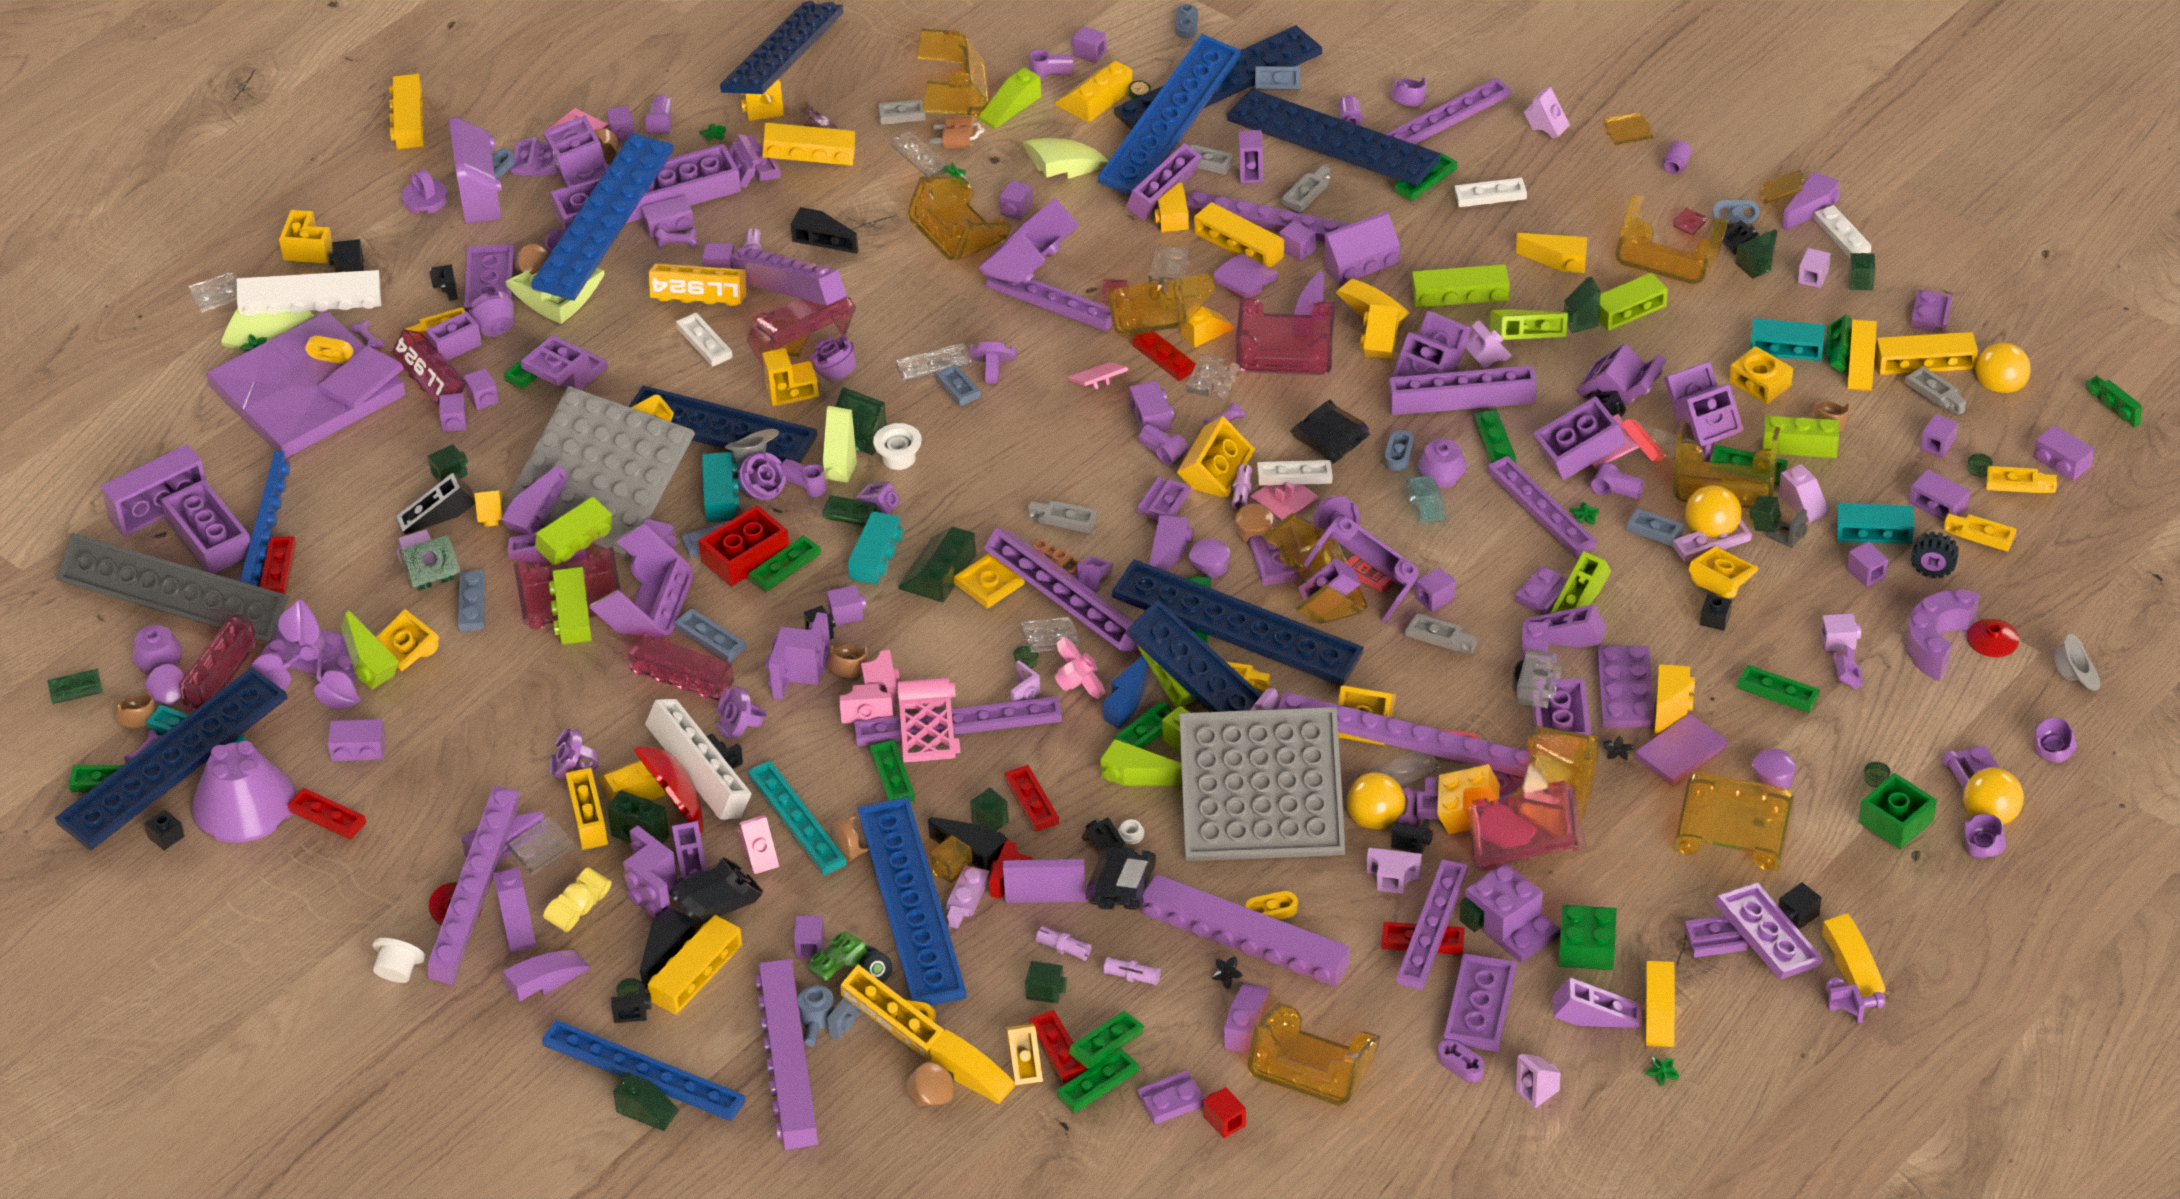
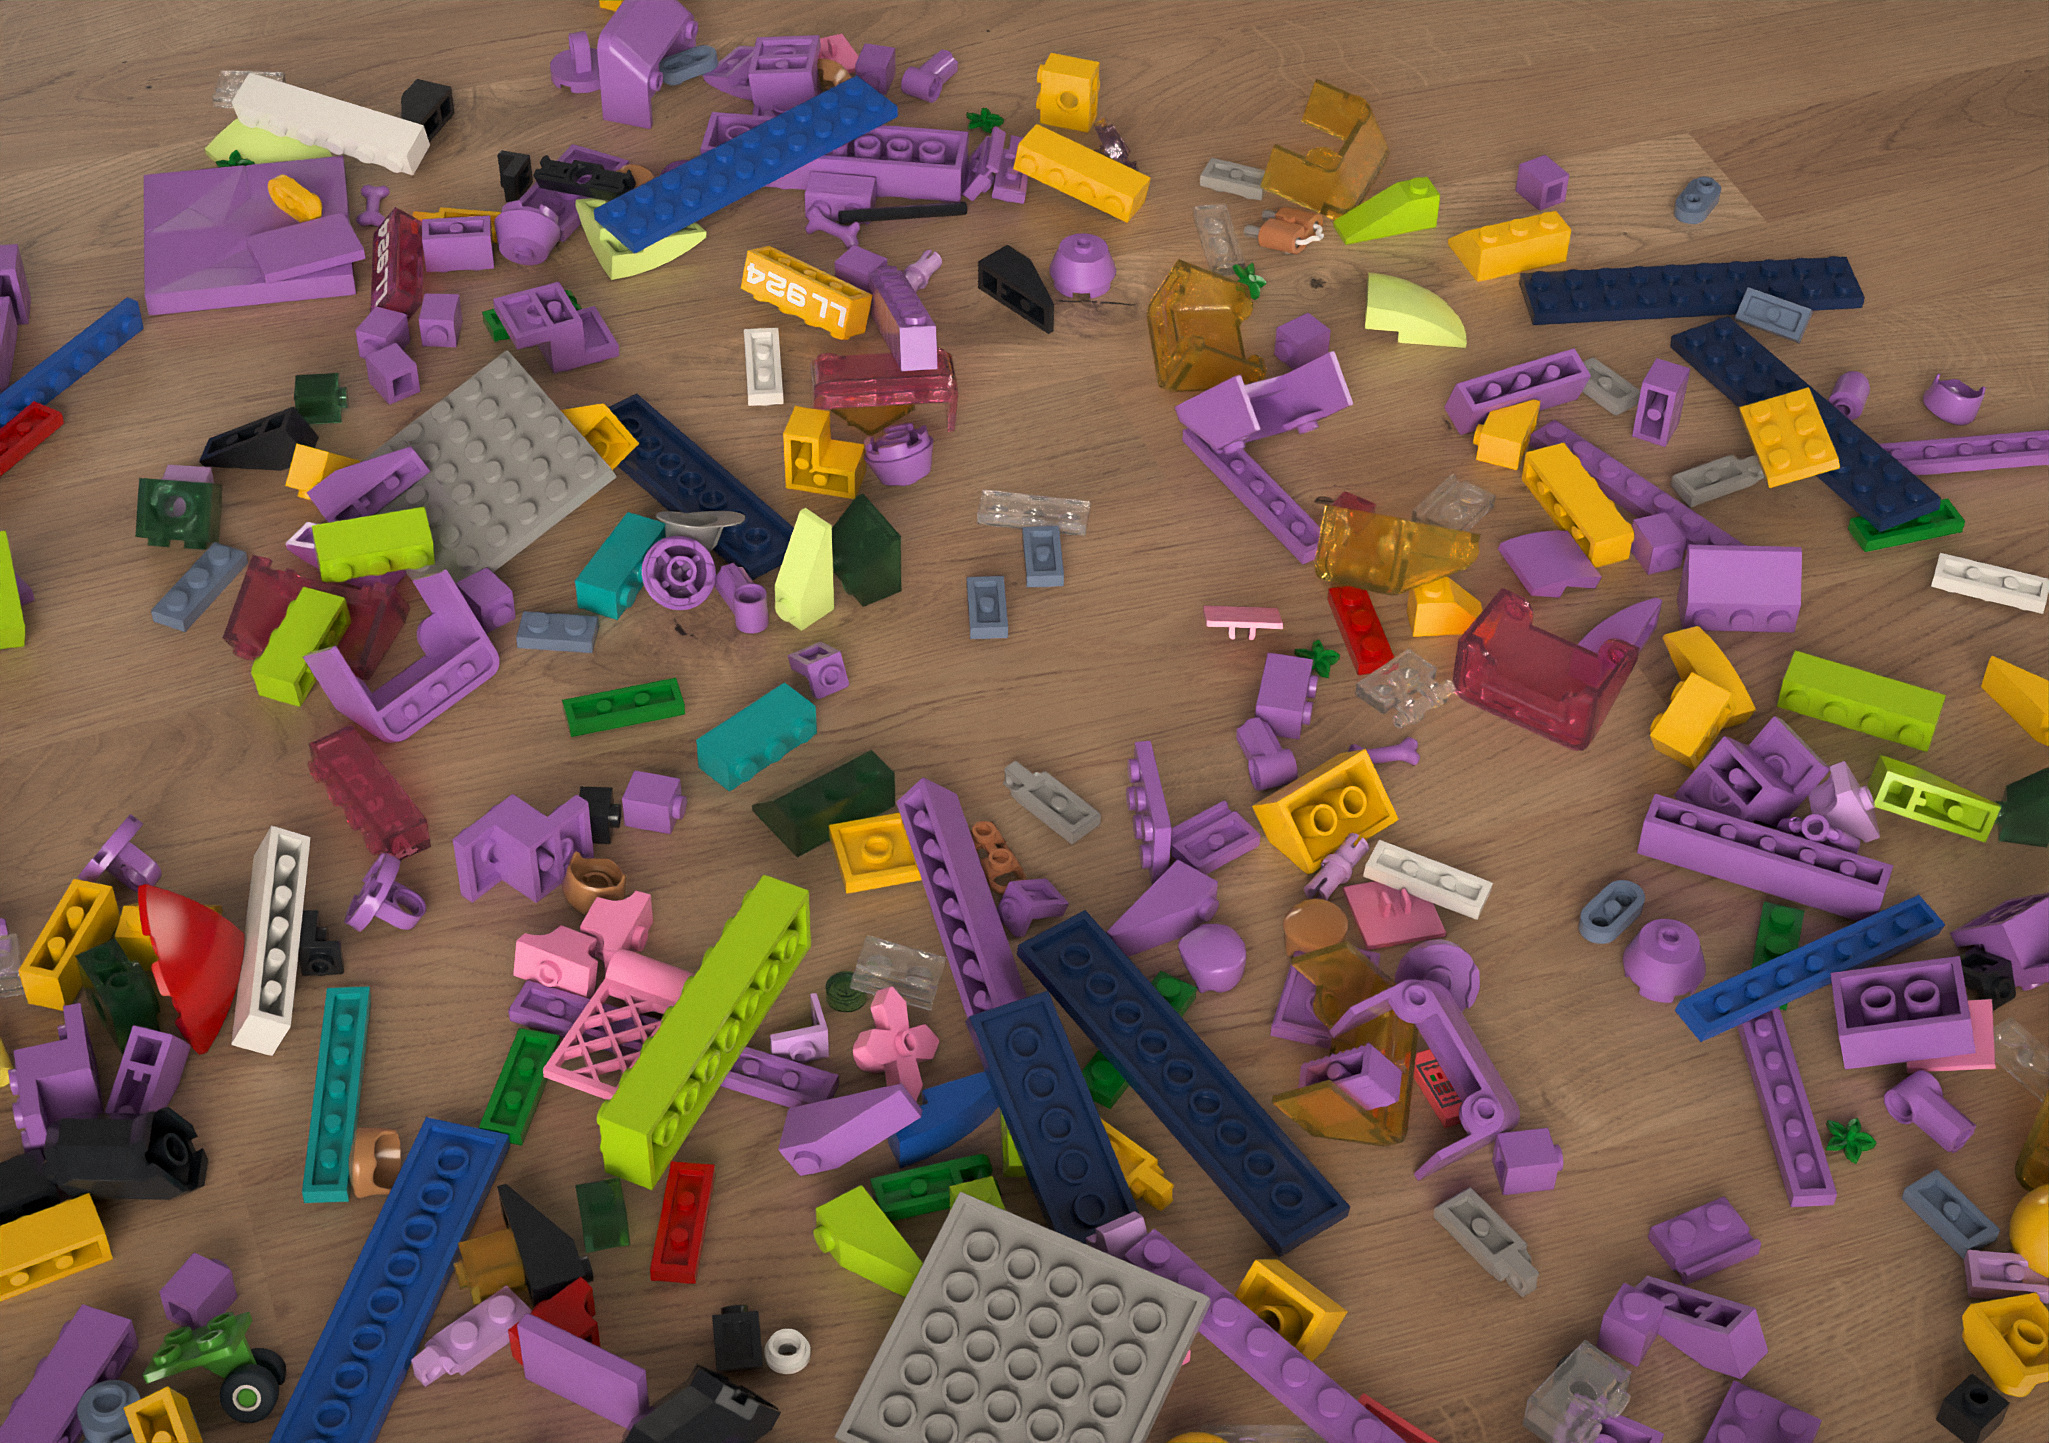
camera: 25 degrees right, 0 degrees up
(303, 240) = (391, 61): yellow brick -> none
(408, 639) = (65, 604): yellow slope -> none
(480, 432) = (392, 373): none -> medium lavender brick
(518, 265) = (564, 176): none -> black piece
(710, 635) = (446, 766): sand blue plate -> none
(713, 211) = (902, 212): none -> black piece
(742, 545) = (582, 656): red brick -> none
(758, 844) = (242, 1110): bright pink brick -> none
(781, 48) = (1125, 44): dark blue plate -> none
(848, 510) = (764, 667): clear green plate -> none
(851, 203) = (1082, 266): none -> medium lavender cone
(897, 445) = (894, 605): white piece -> none
(948, 426) = (987, 607): none -> sand blue plate
(980, 698) = (704, 1032): none -> lime brick
(992, 354) = (1111, 536): medium lavender tile -> none
(1045, 64) = (1463, 186): medium lavender piece -> none
(1085, 717) = (841, 1128): none -> medium lavender slope
(1127, 497) = (1151, 818): none -> medium lavender plate
(1138, 88) = (1570, 259): tile -> none
(1149, 377) = (1321, 658): none -> green plant
(1170, 114) = (1590, 303): blue plate -> none
(1331, 431) = (1519, 839): black brick -> none
(1336, 150) = (1789, 437): none -> yellow plate
(1427, 498) = (1603, 1007): clear light blue slope -> none
(1482, 362) = (1817, 829): none -> medium lavender piece
(1519, 435) = (1808, 968): none -> blue plate
(1583, 584) = (1767, 1262): lime slope -> none
(1643, 440) = (2010, 1060): coral tile -> none

